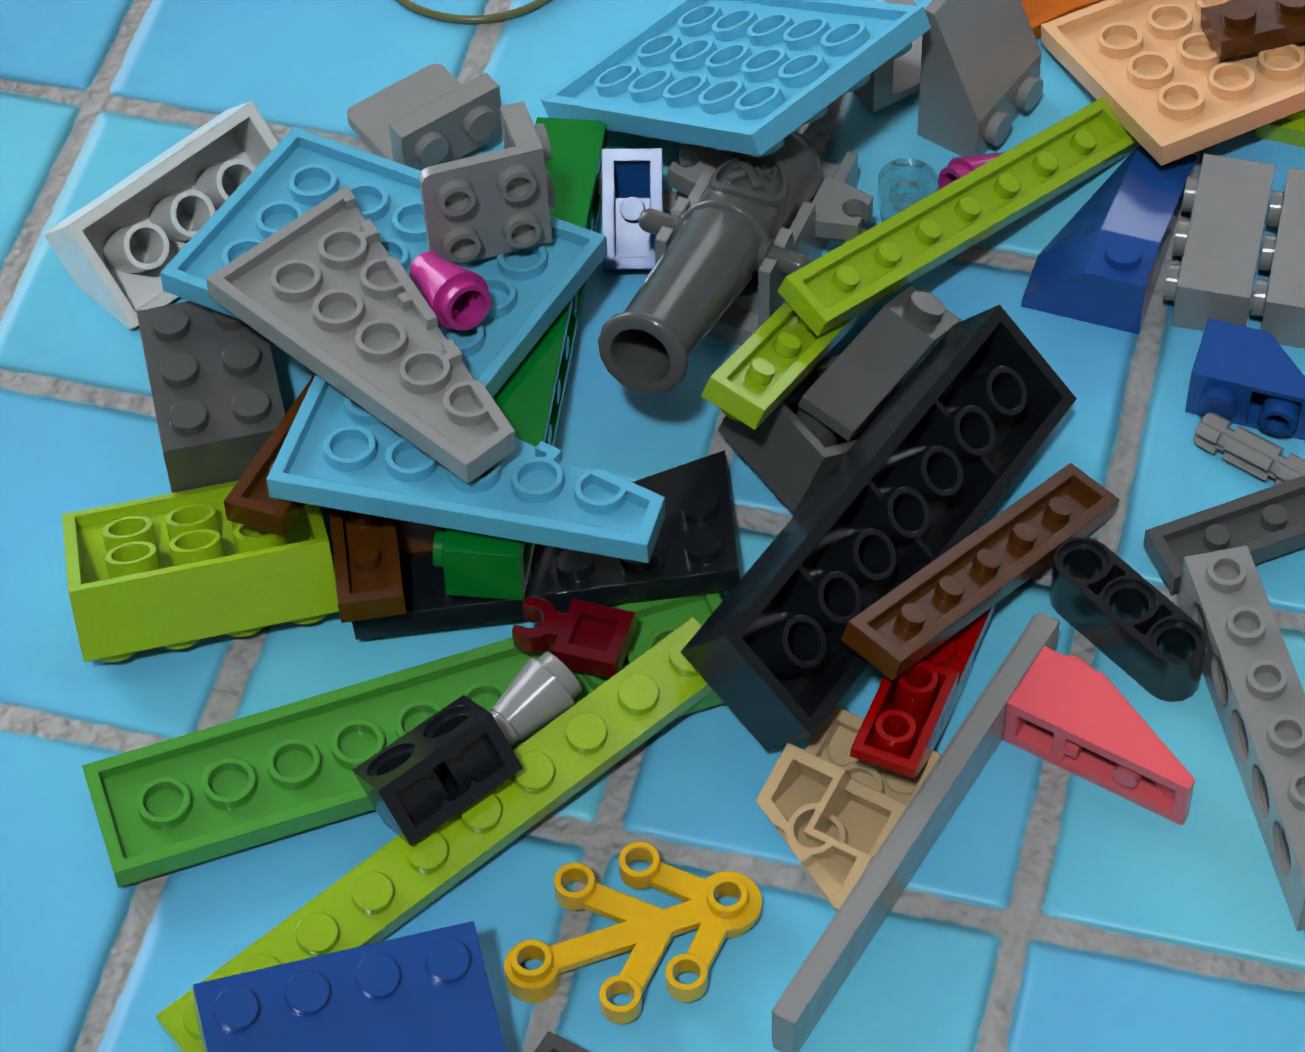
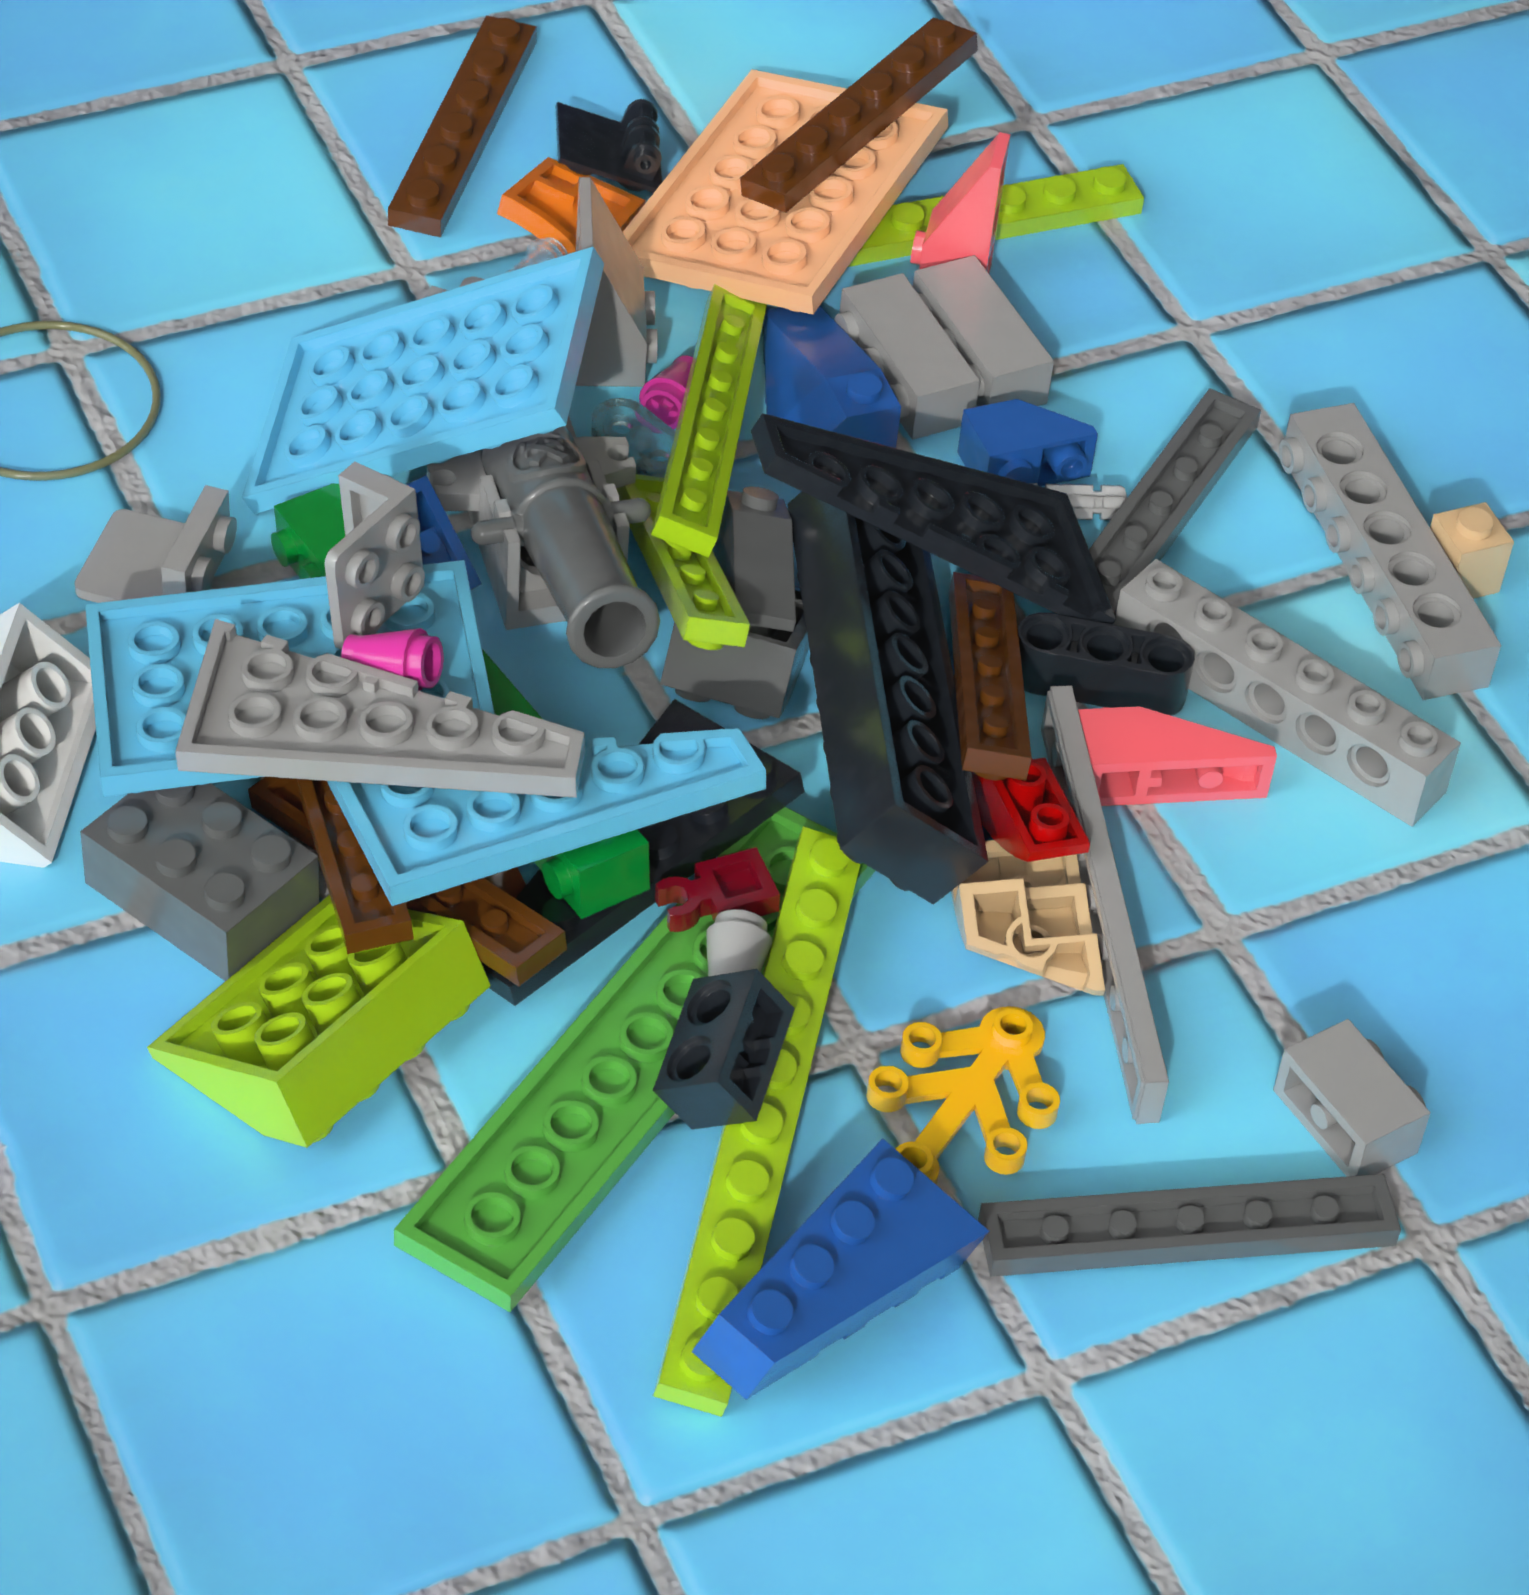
camera: 45 degrees left, 5 degrees down
(1093, 426) = (972, 518): none -> black wing

